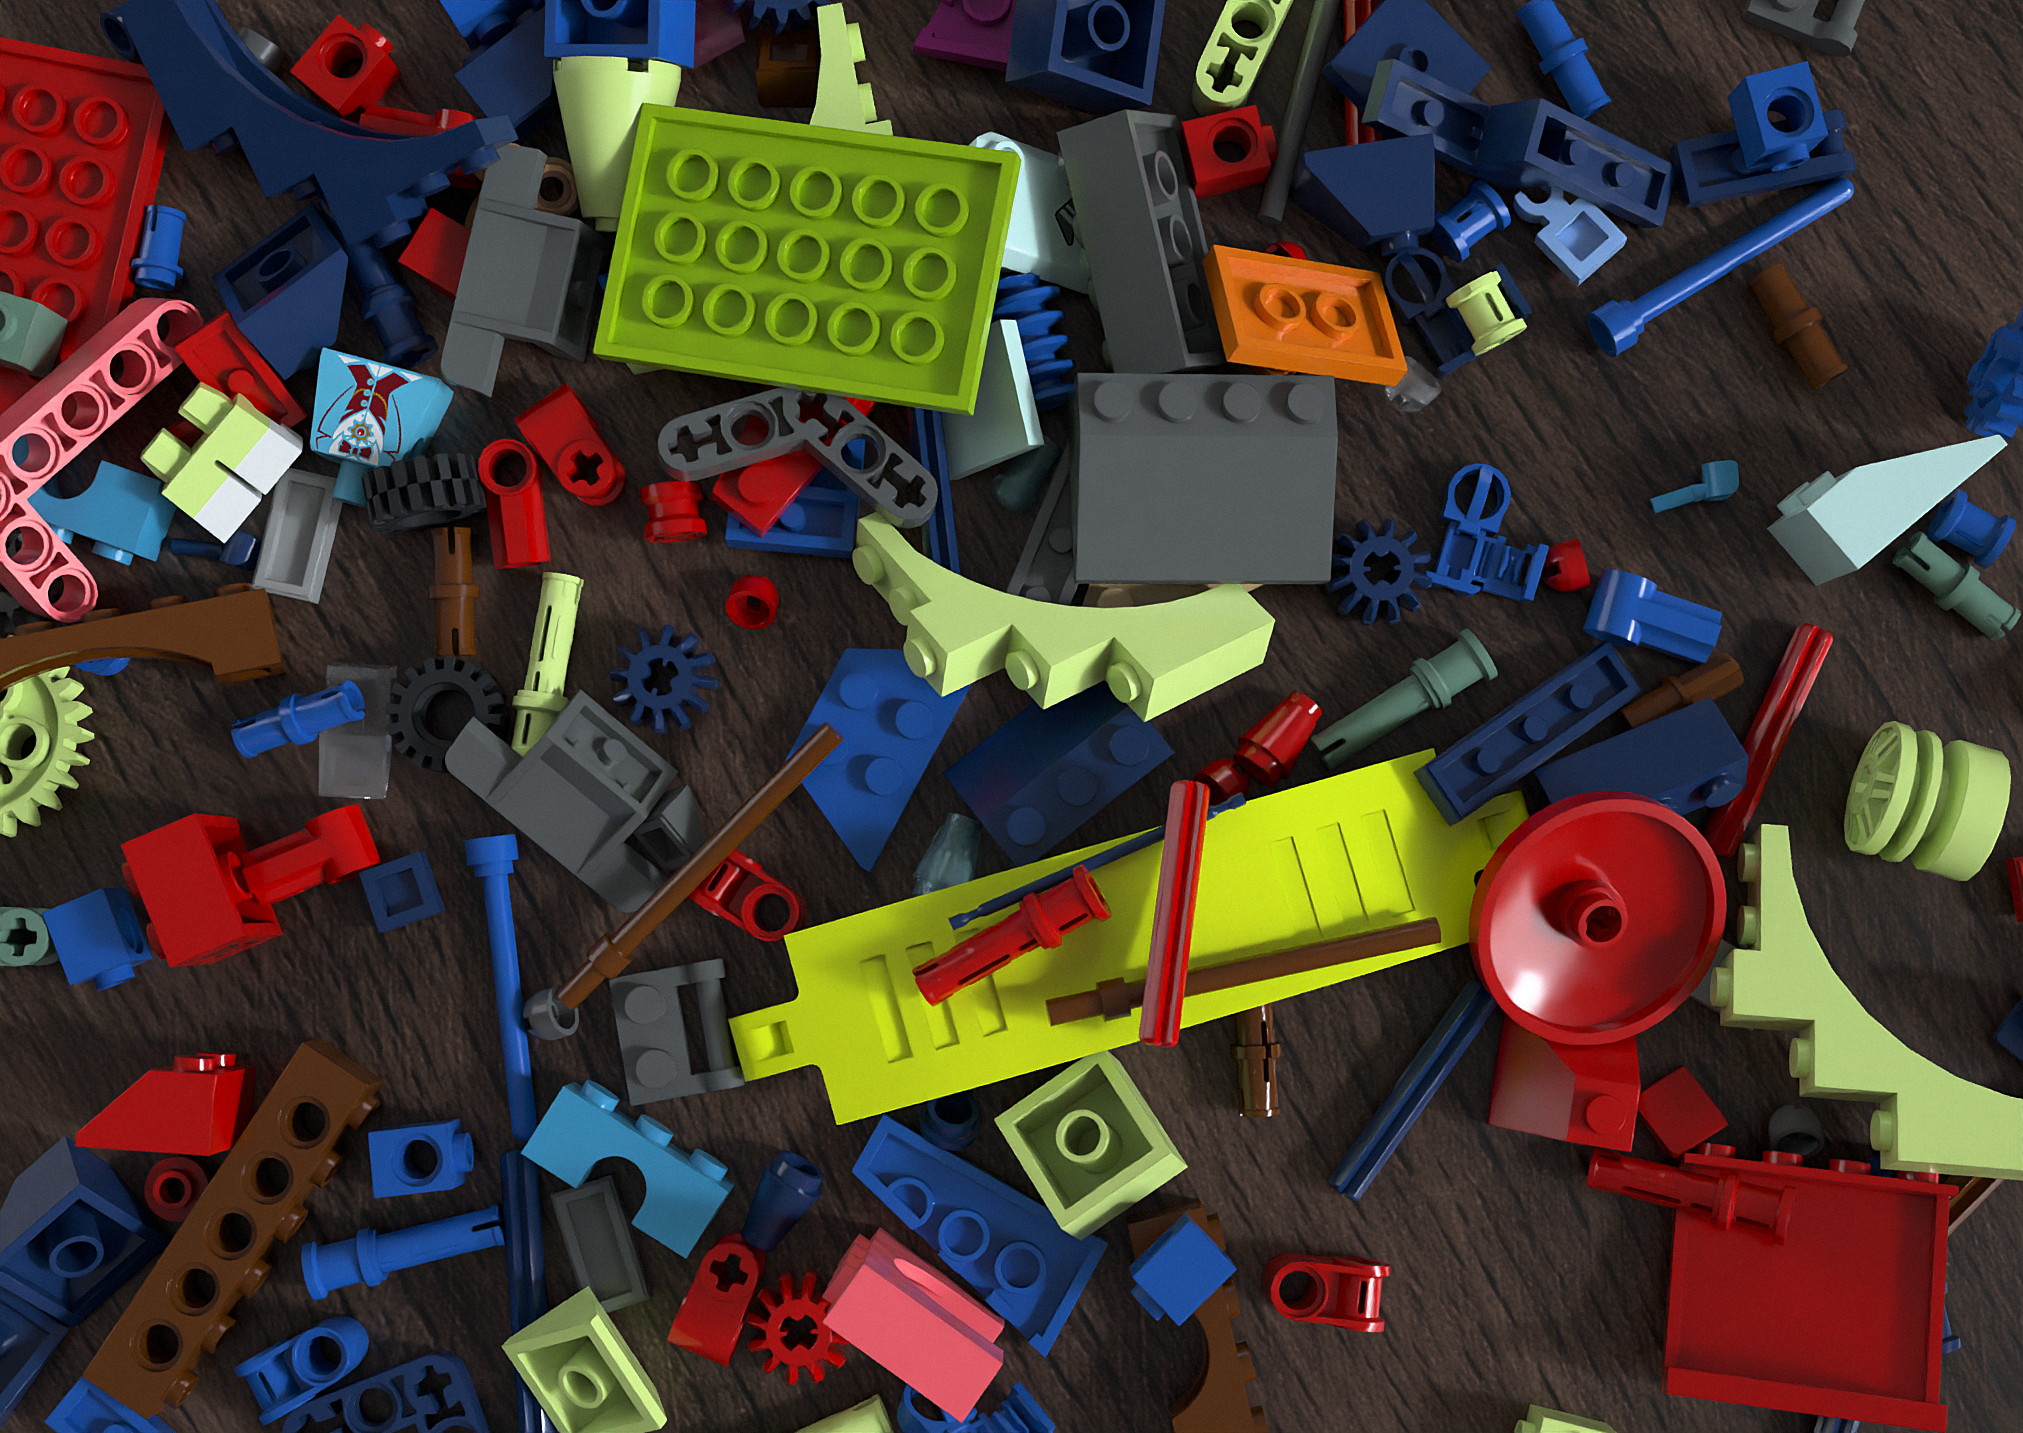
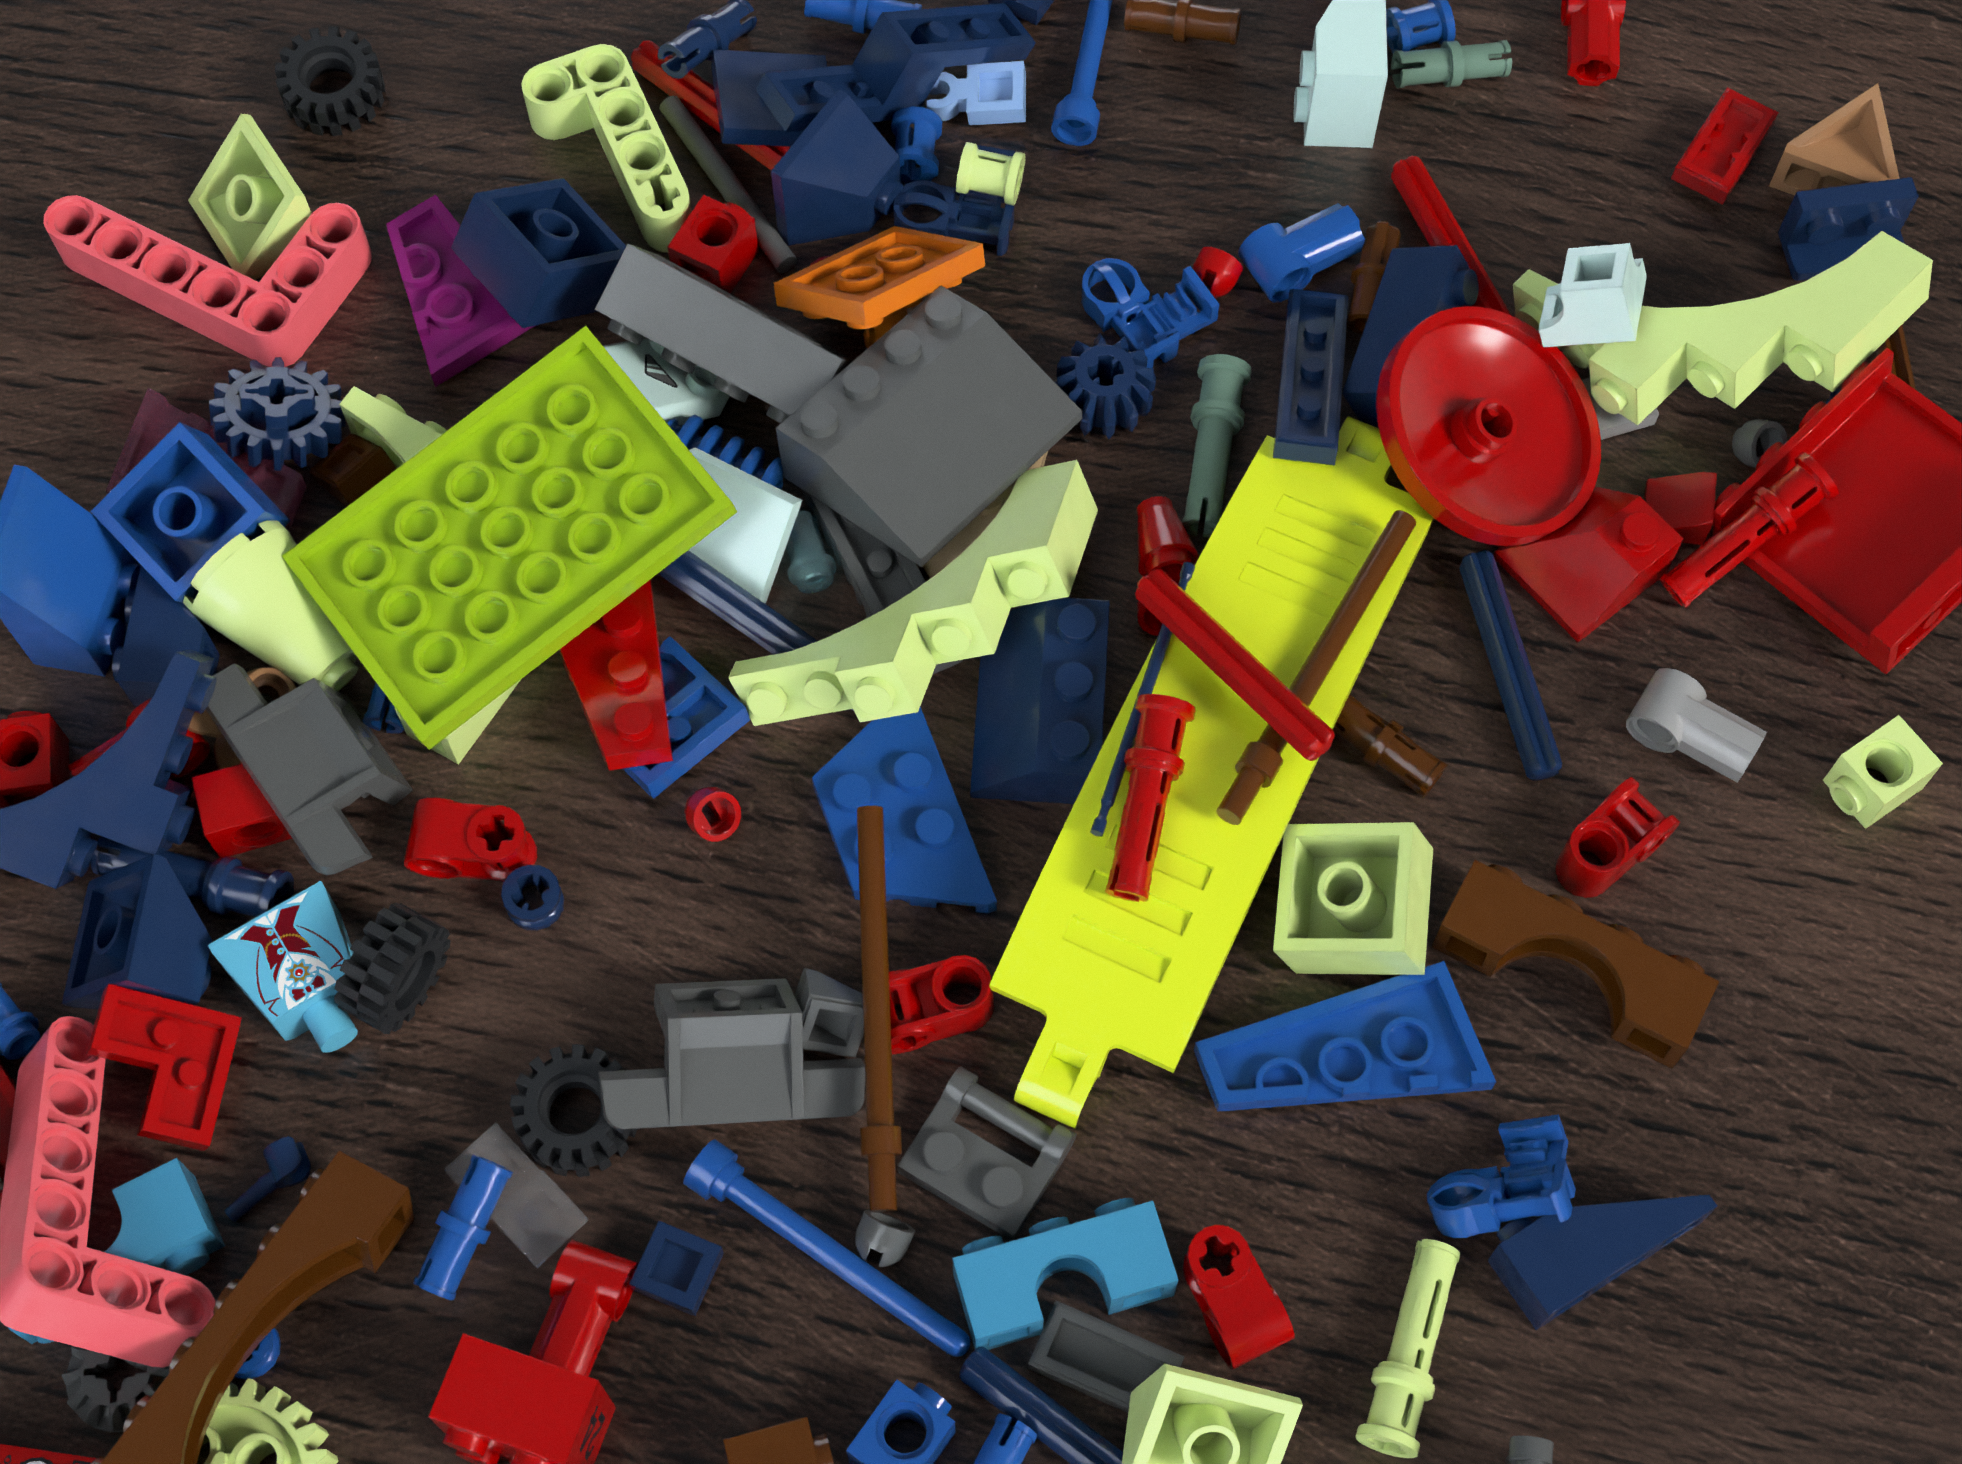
camera: 50 degrees left, 20 degrees down
(228, 465) = (216, 1091): yellowish green hips -> none
(298, 536) = (320, 1106): light grey tile -> none
(453, 591) = (483, 1023): reddish brown pin -> none
(516, 511) = (474, 920): red piece -> none
(548, 661) = (632, 1029): yellowish green pin -> none
(570, 514) = (513, 896): none -> dark blue bush
(643, 673) = (695, 903): dark blue gear -> none
(673, 511) = (589, 810): red wheel -> none
(781, 1199) = (1193, 1180): dark blue cone -> none
(785, 1348) = (1321, 1224): red gear -> none
(787, 434) = (619, 663): dark grey piece -> none
(915, 1321) = (1384, 1107): coral arch -> none
(950, 856) = (1034, 828): clear light blue cone -> none
(957, 1108) = (1242, 998): dark blue plate -> none
(1179, 1271) = (1511, 901): blue brick -> none
(1416, 387) = (998, 264): clear hinge -> none
(1479, 1260) = (1679, 717): none -> light grey piece
(1719, 483) = (1244, 142): dark azure hand -> none
(1785, 917) = (1595, 299): none -> light aqua brick
(1927, 801) = (1587, 176): yellowish green wheel -> none

